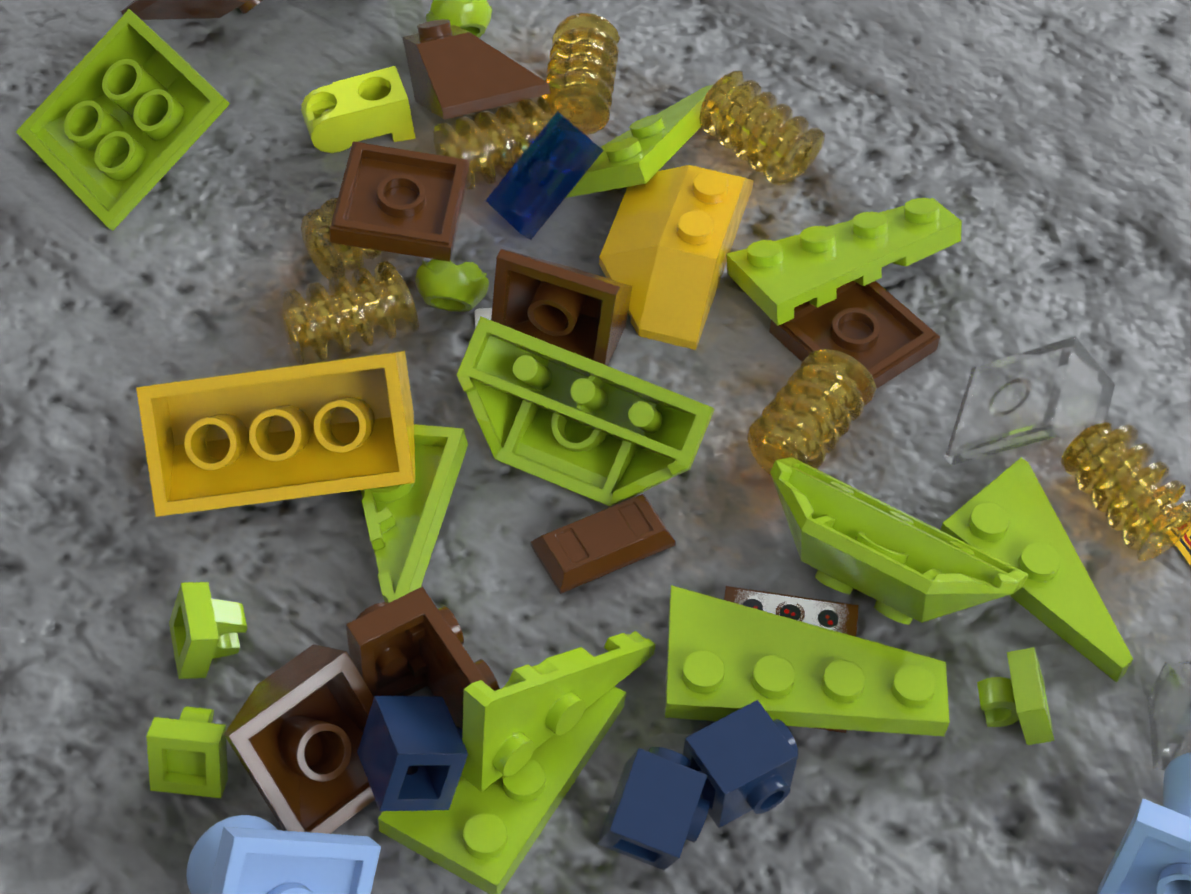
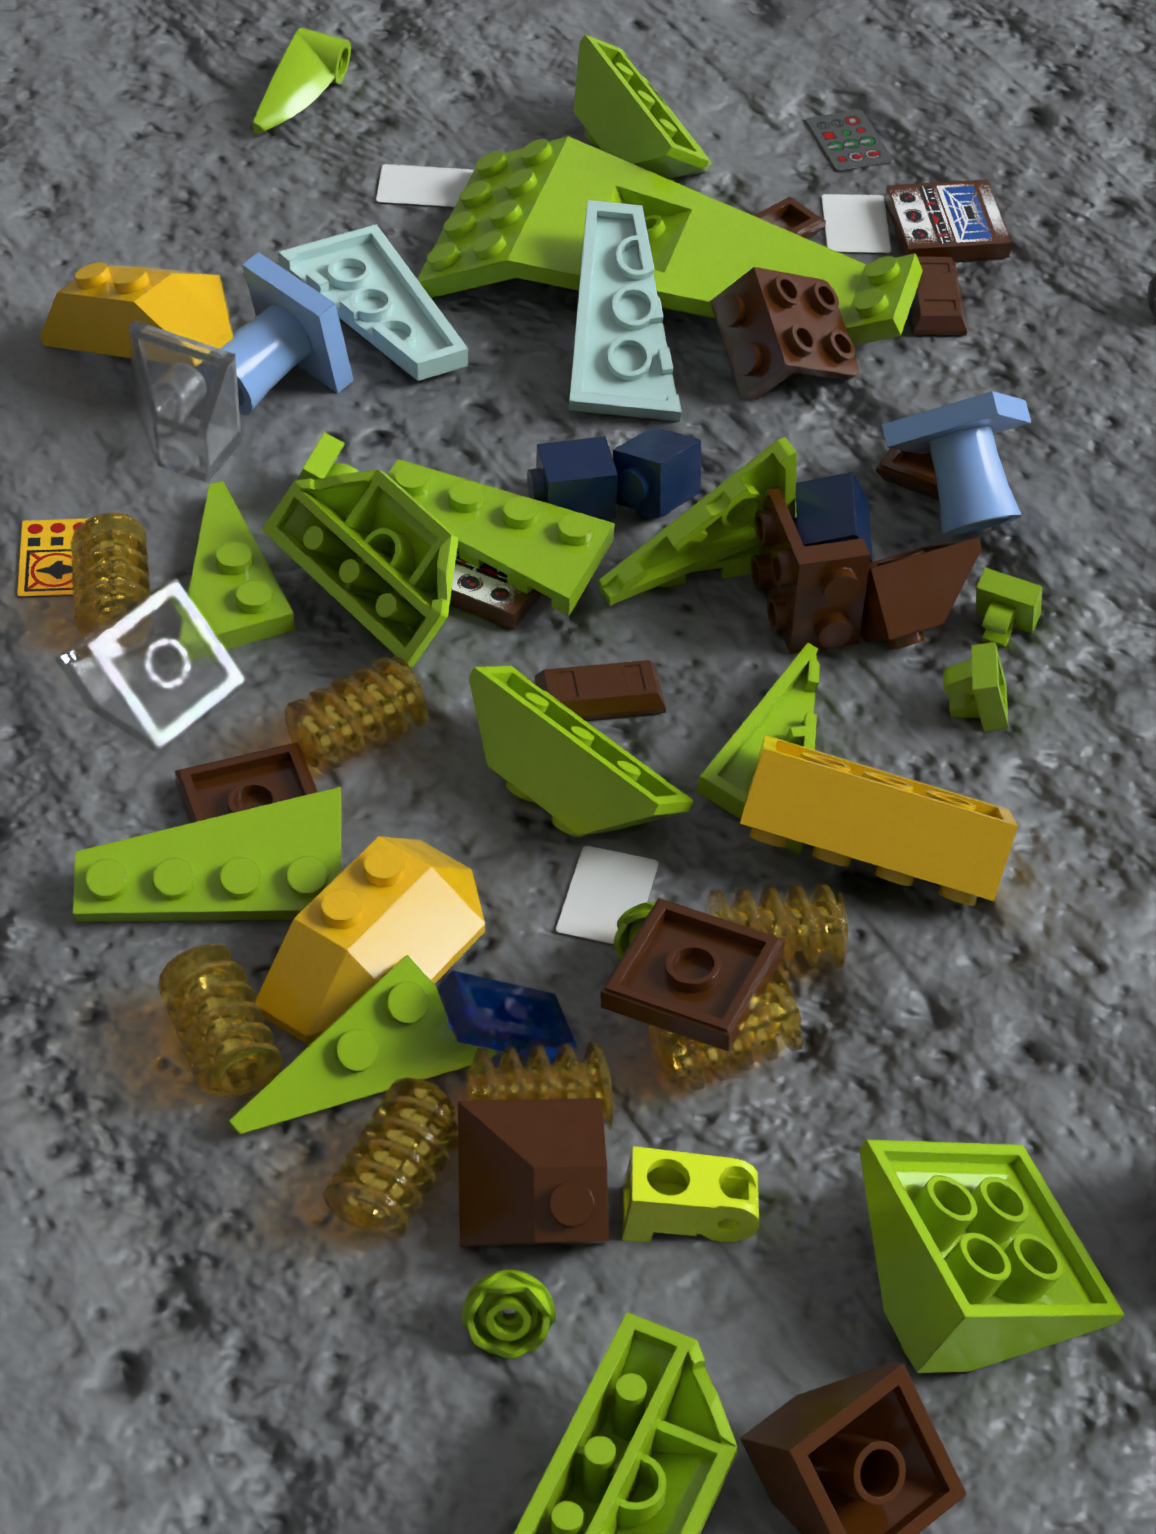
camera: 160 degrees left, 5 degrees down
(560, 304) = (554, 848): reddish brown slope -> none

